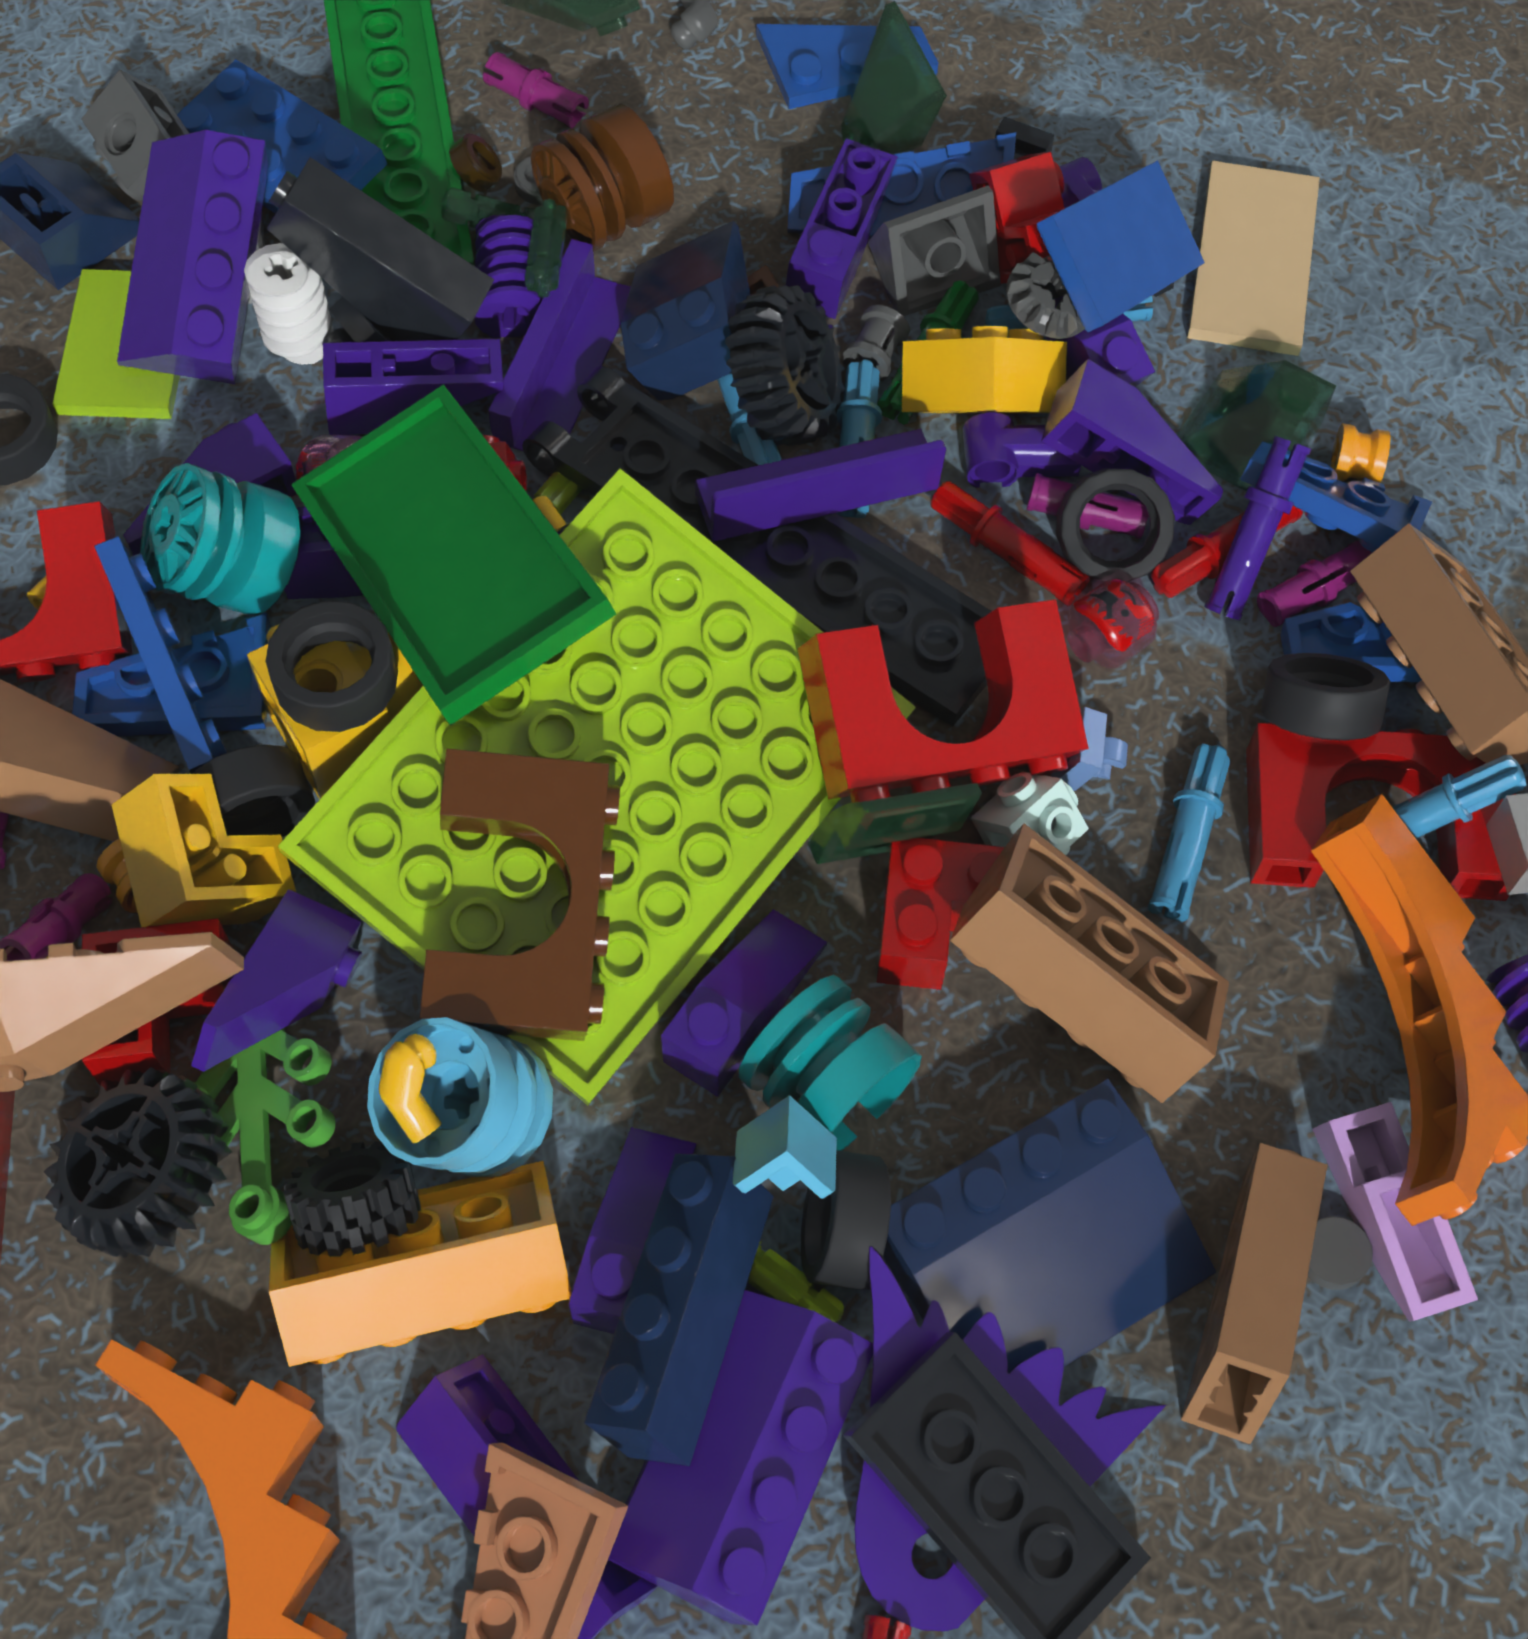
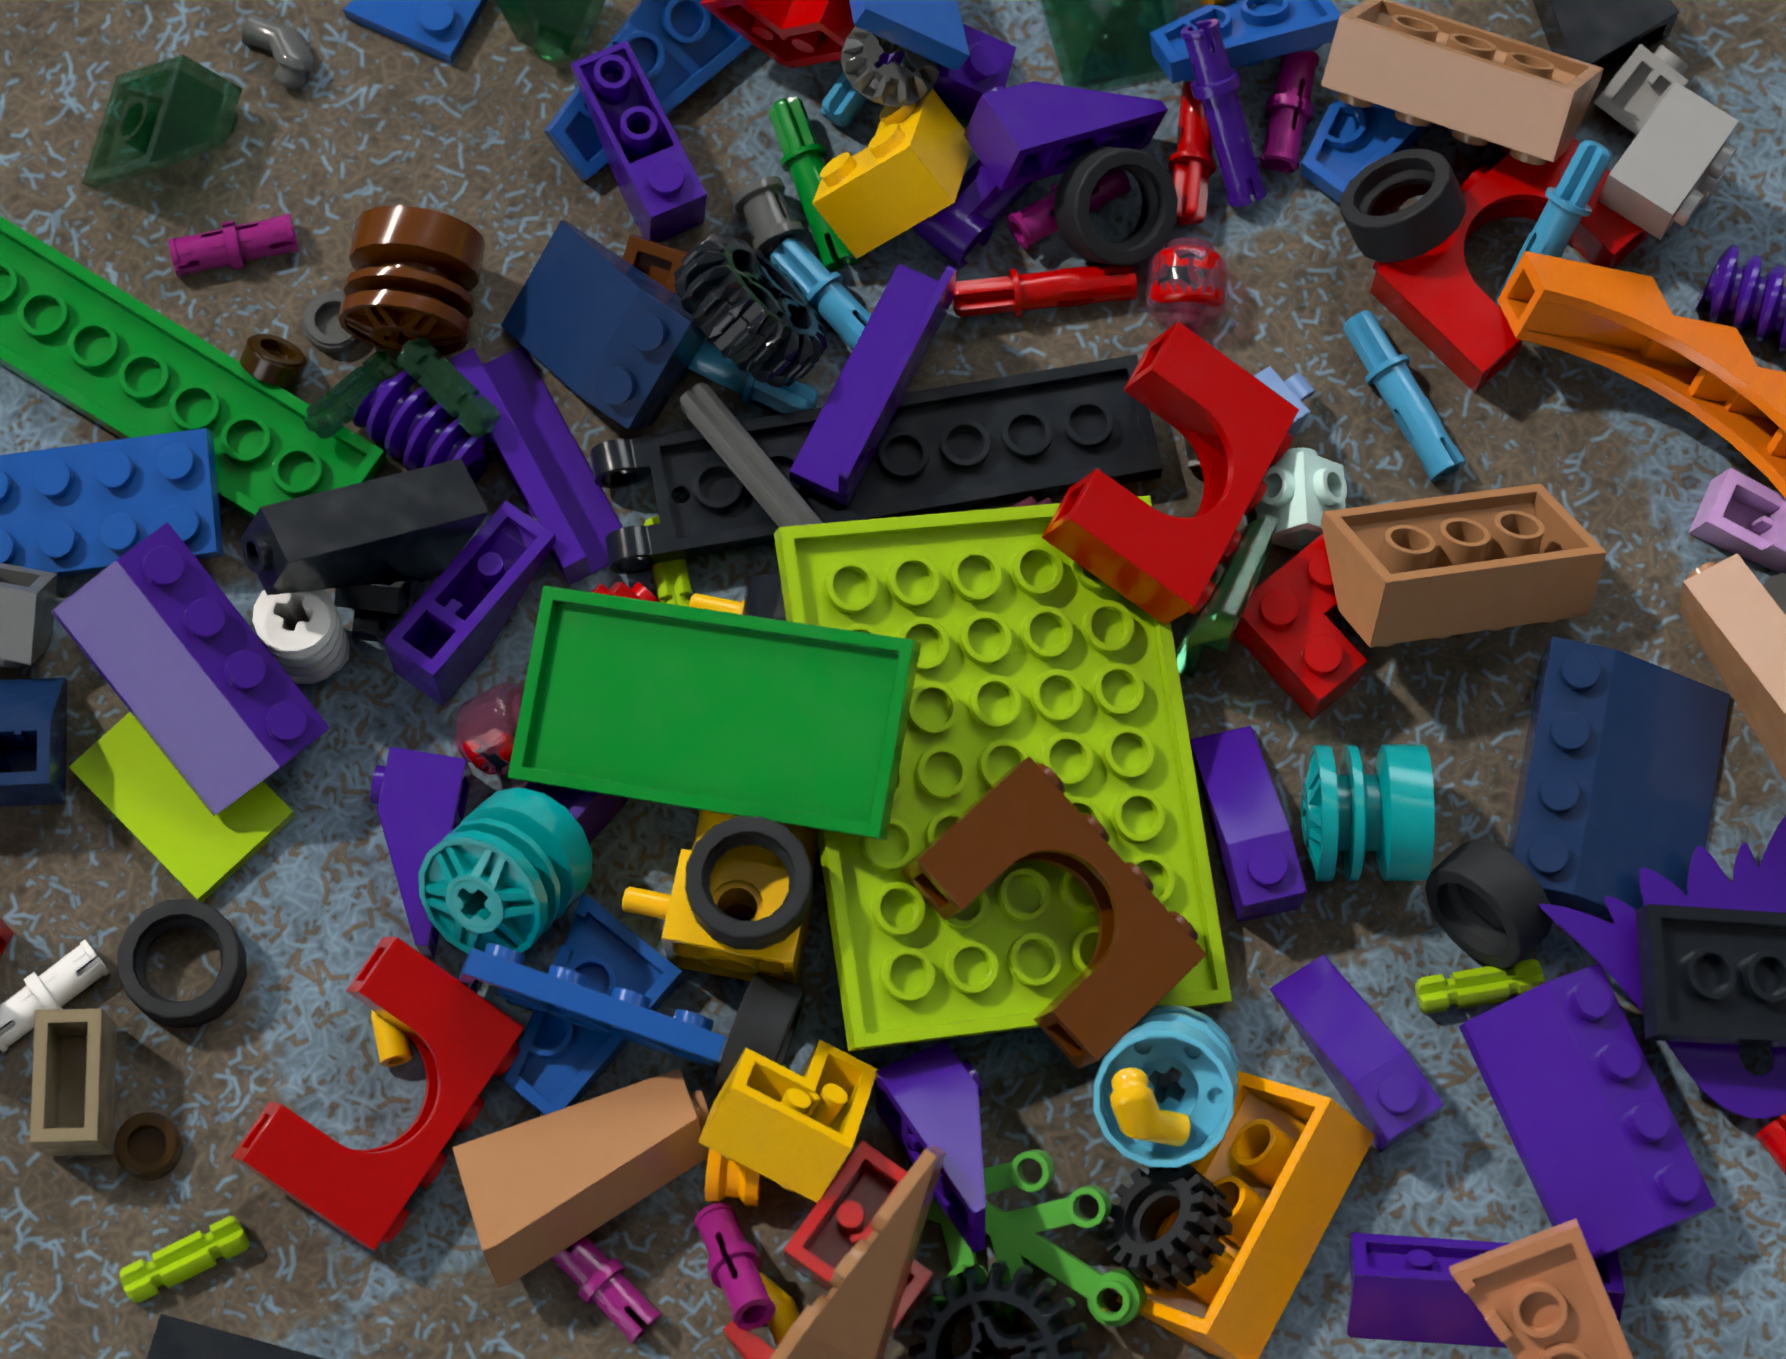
camera: 45 degrees left, 10 degrees up
(679, 1312) = (1461, 1066): dark blue brick -> none
(680, 443) = (745, 458): none -> dark grey axle
(786, 1148) = (1422, 898): medium azure panel -> none
(935, 247) = (733, 90): dark grey slope -> none

